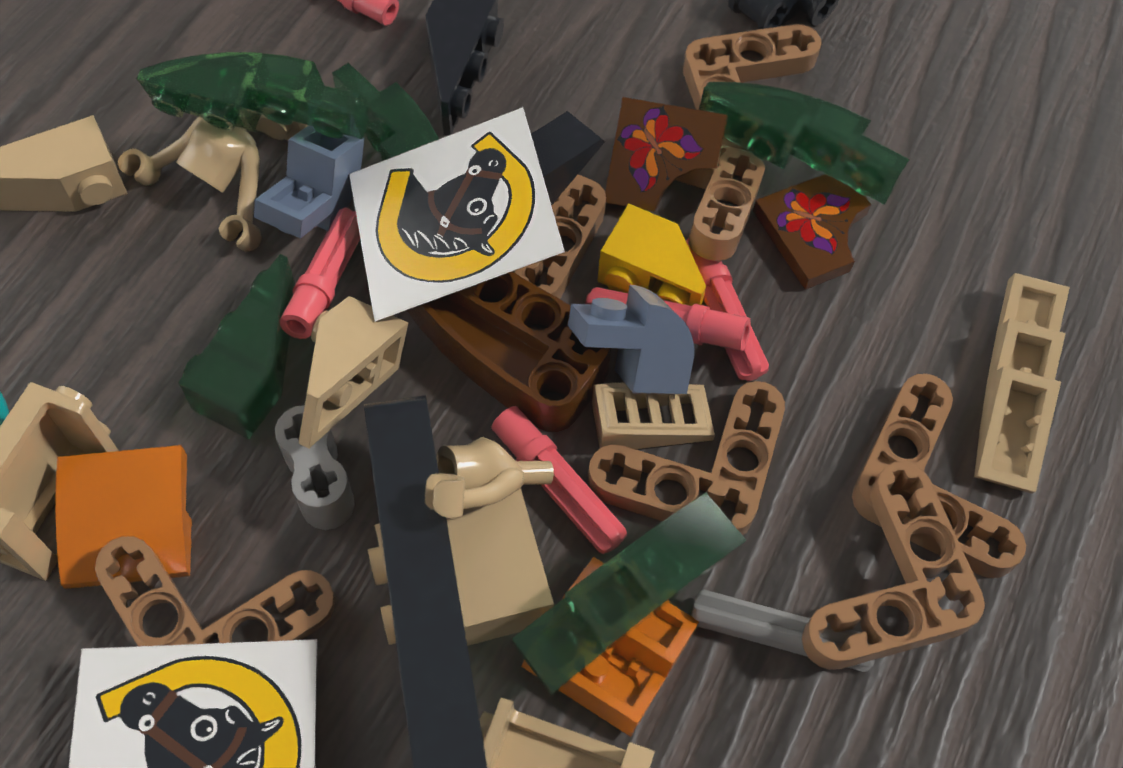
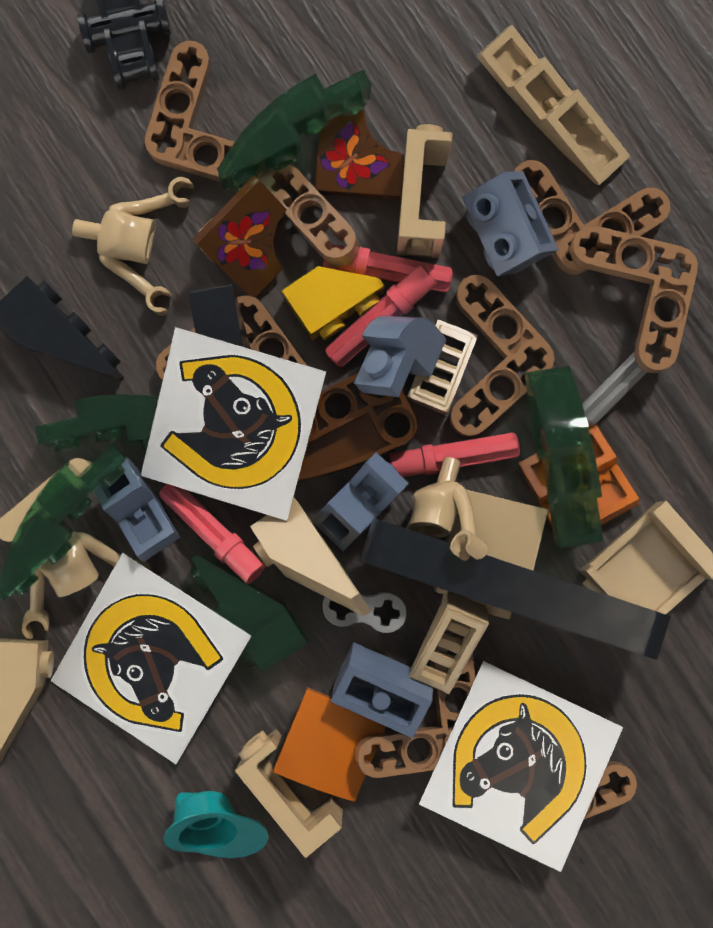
camera: 55 degrees left, 25 degrees up
(146, 281) = (150, 658): none -> sticker
(218, 529) = (381, 690): none -> sand blue brick
(357, 570) = (462, 618): none -> tan slope
(456, 398) = (360, 501): none -> sand blue brick
(597, 73) = (132, 237): none -> tan piece
(847, 260) = (423, 147): none -> tan panel
(862, 392) = (509, 223): none -> sand blue brick

